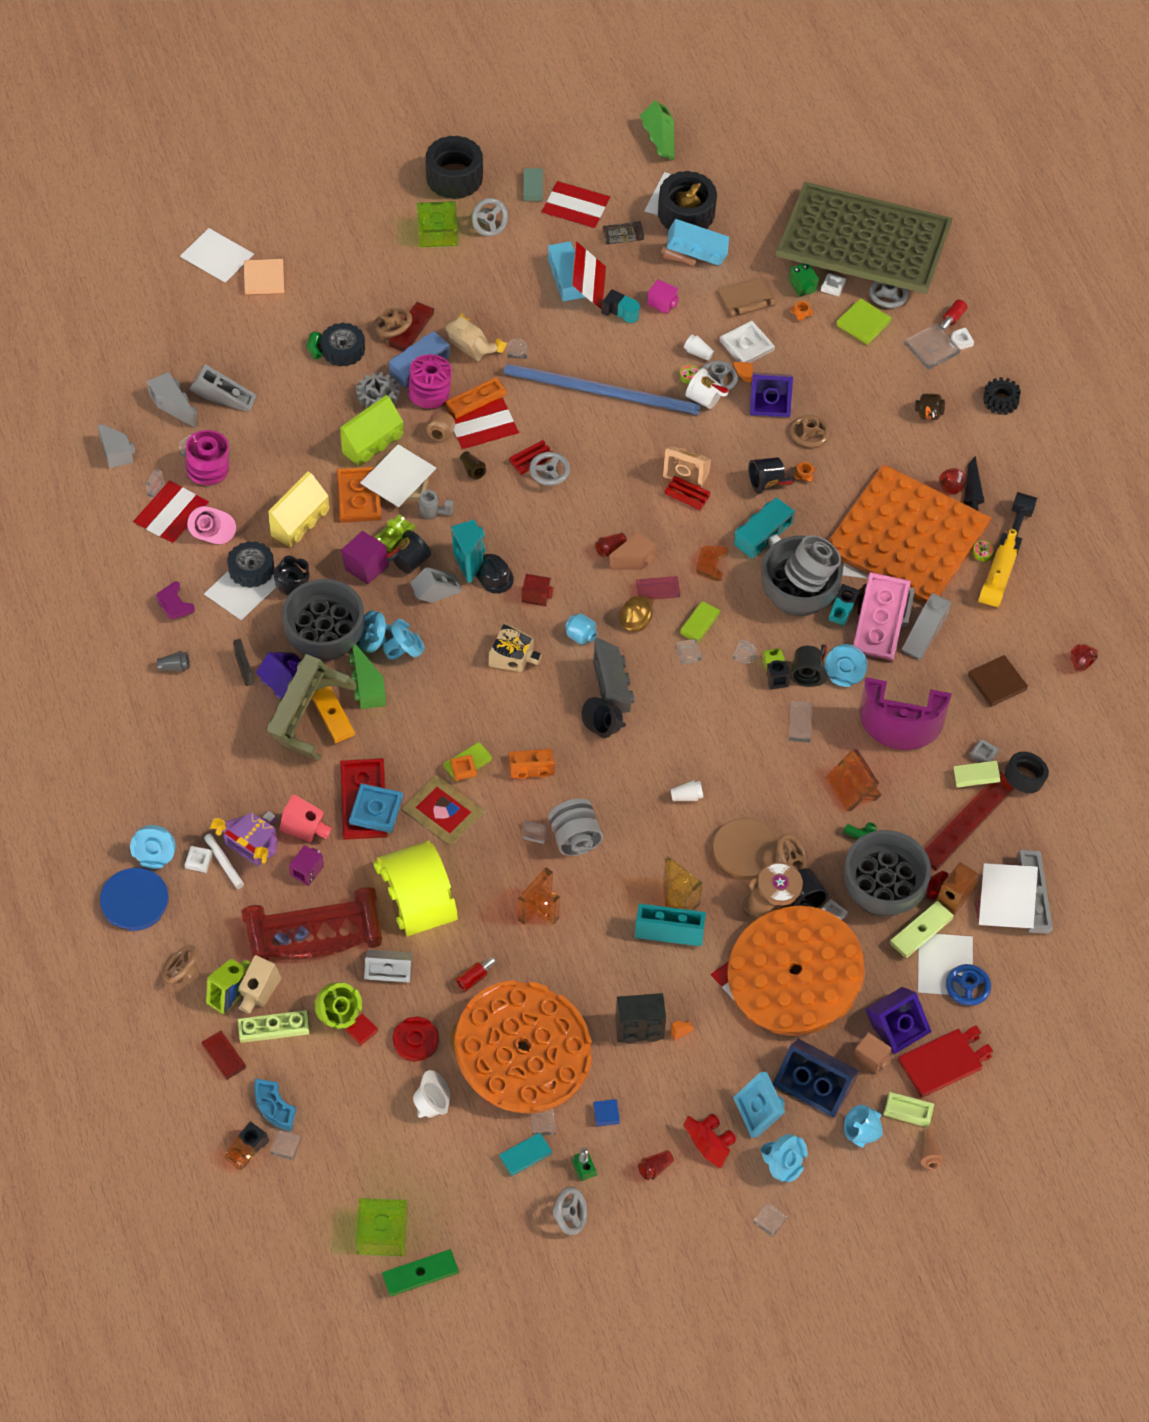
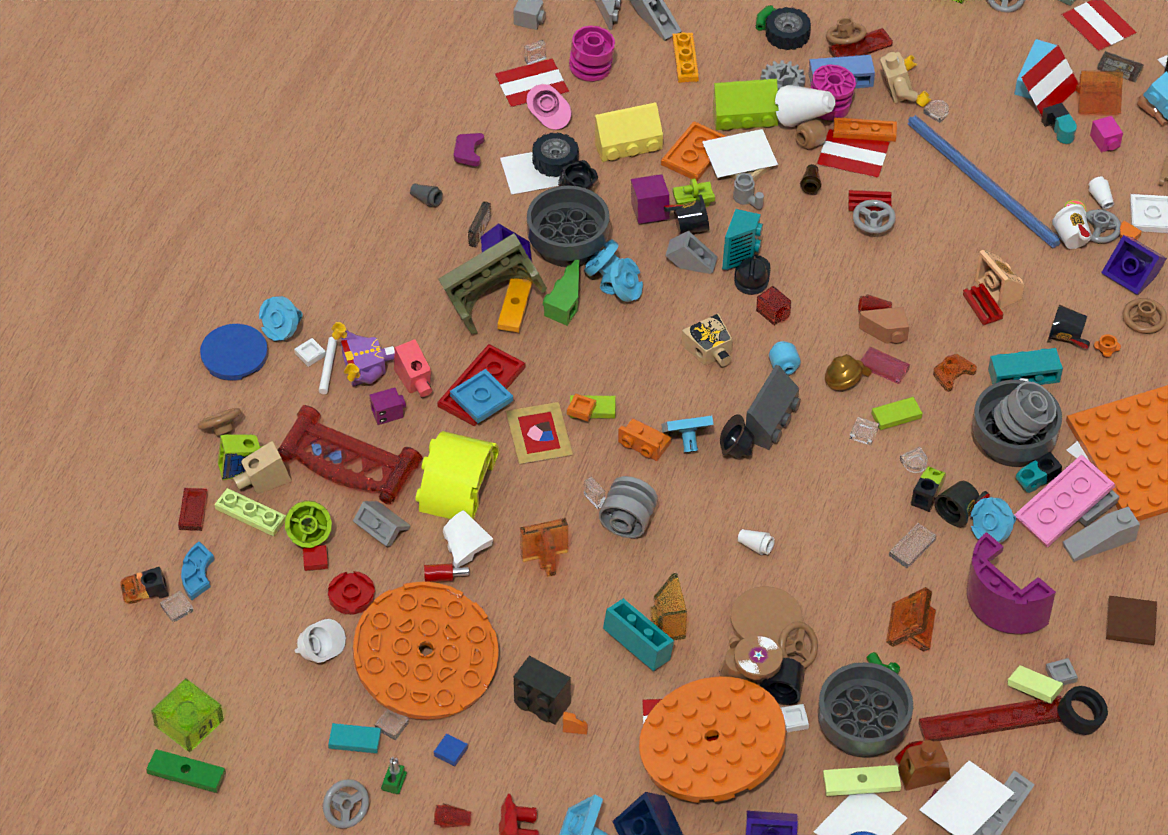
camera: 40 degrees right, 5 degrees down
(280, 417) = (685, 57): none -> light orange tile
(421, 404) = (802, 104): none -> white cone
(468, 934) = (465, 538): none -> white slope
(560, 732) = (688, 428): none -> medium azure tile
(631, 263) = (1100, 91): none -> clear orange bracket

